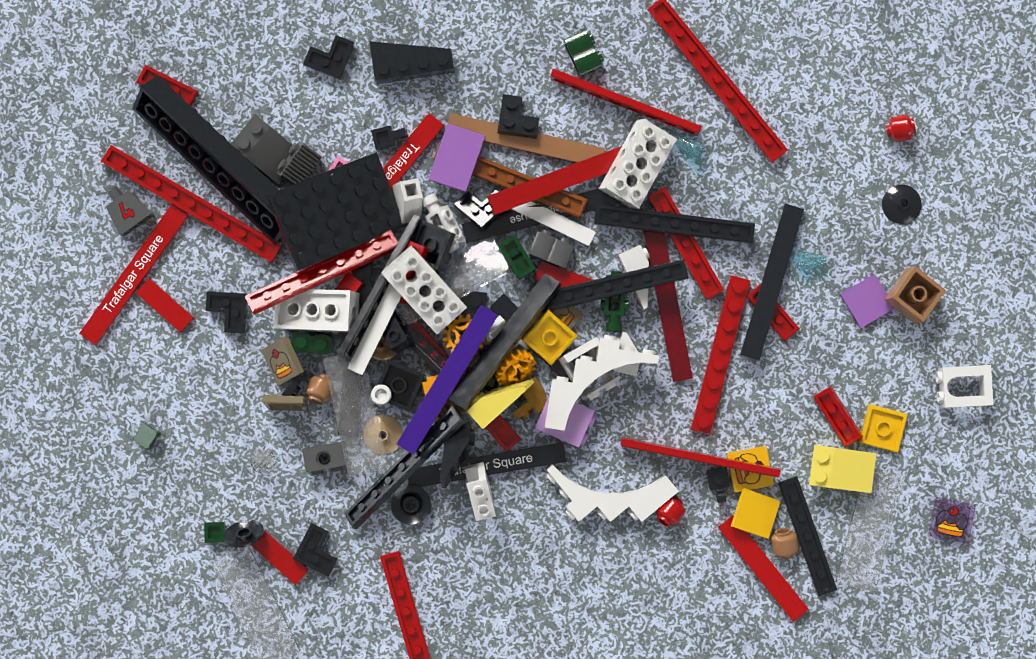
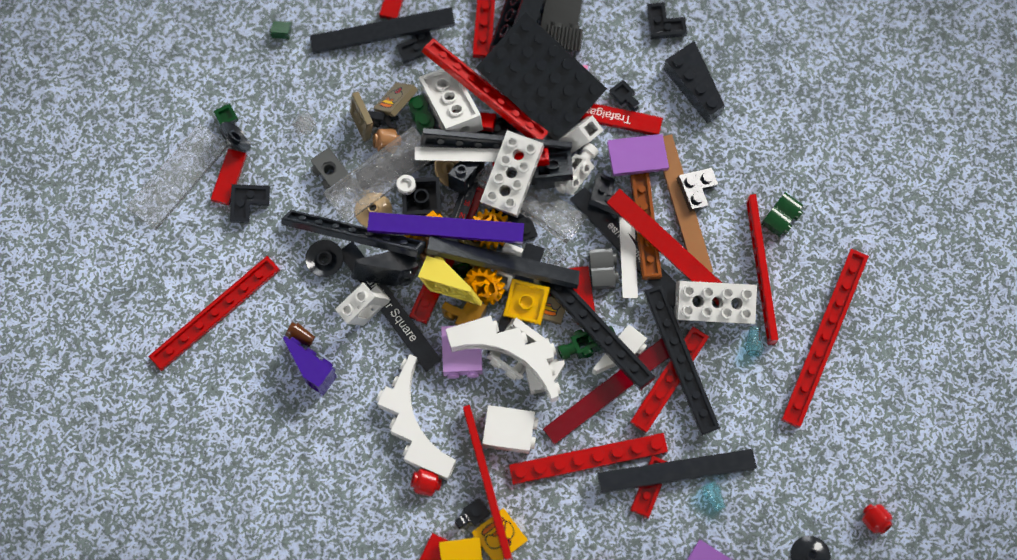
camera: 60 degrees right, 15 degrees down
(201, 337) = (382, 30): none -> black tile
(473, 561) = (300, 333): none -> reddish brown cone
(516, 257) = (580, 242): dark green brick -> none
(516, 567) = (316, 372): none -> dark purple slope
(660, 412) = (509, 429): none -> white brick

